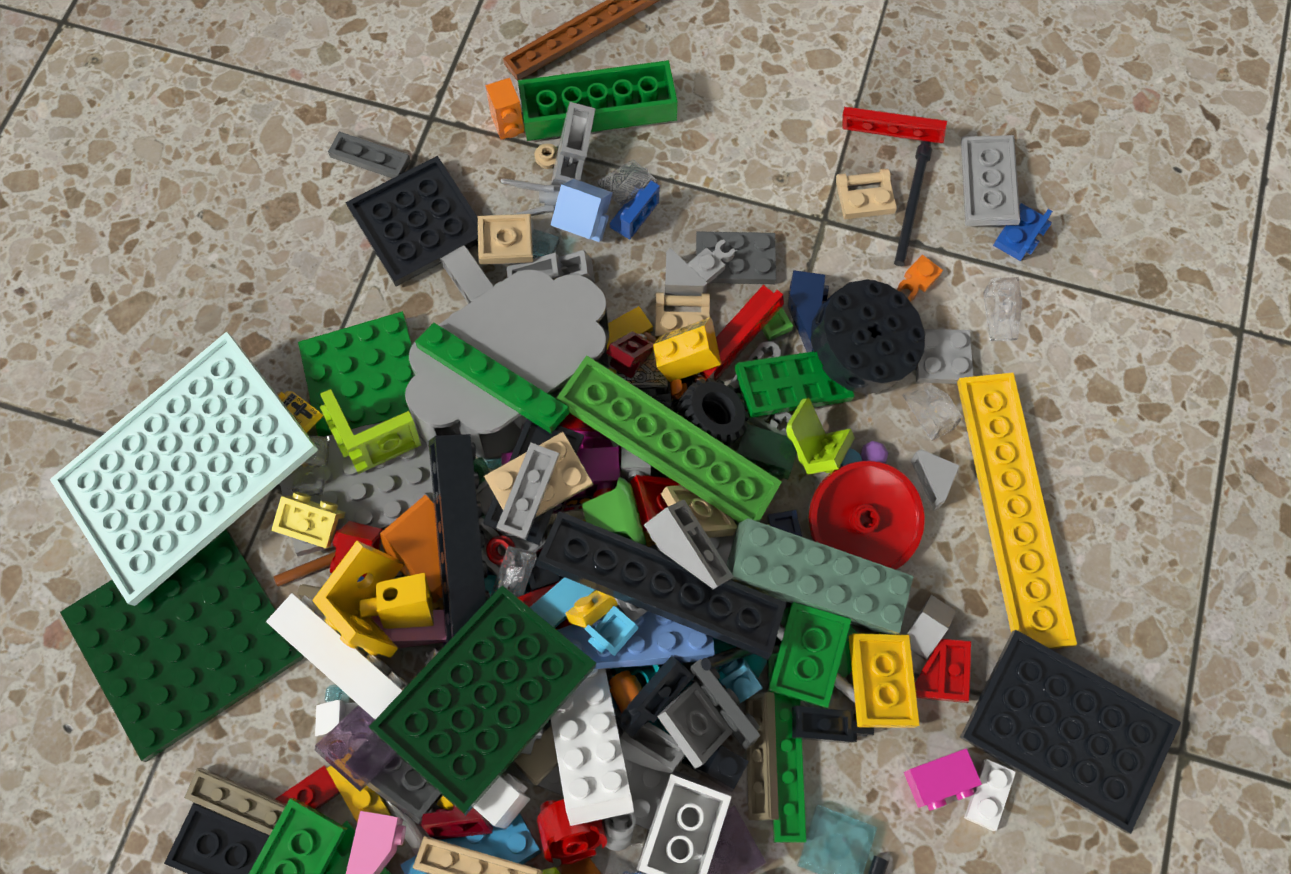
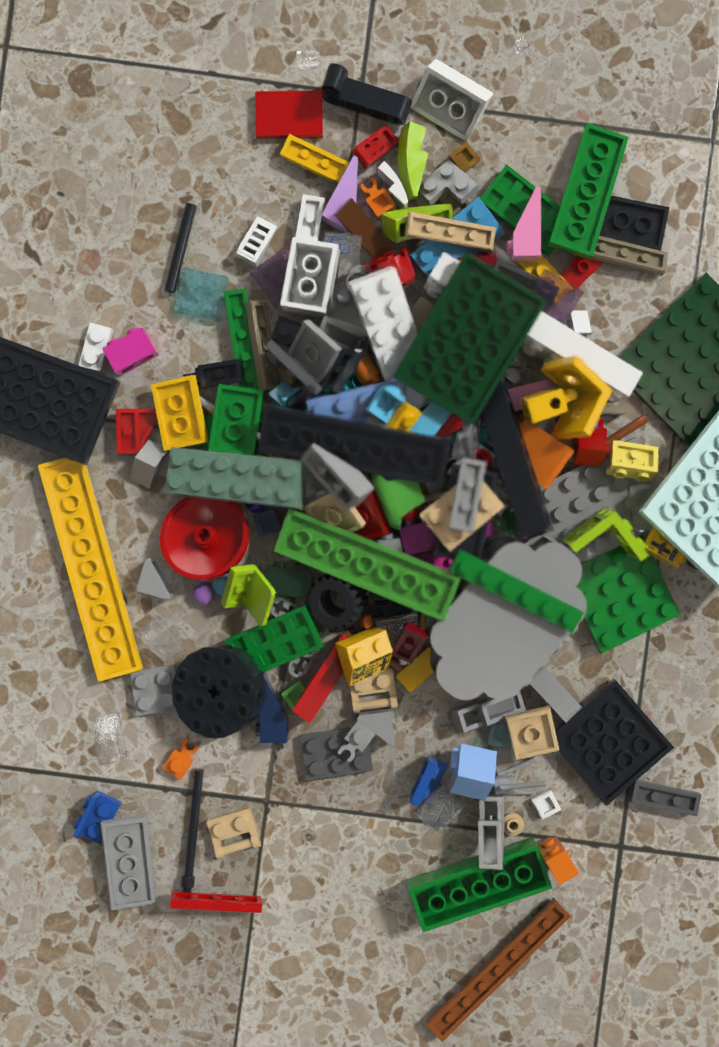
camera: 175 degrees right, 20 degrees up
(505, 168) = (545, 804): none -> white tile

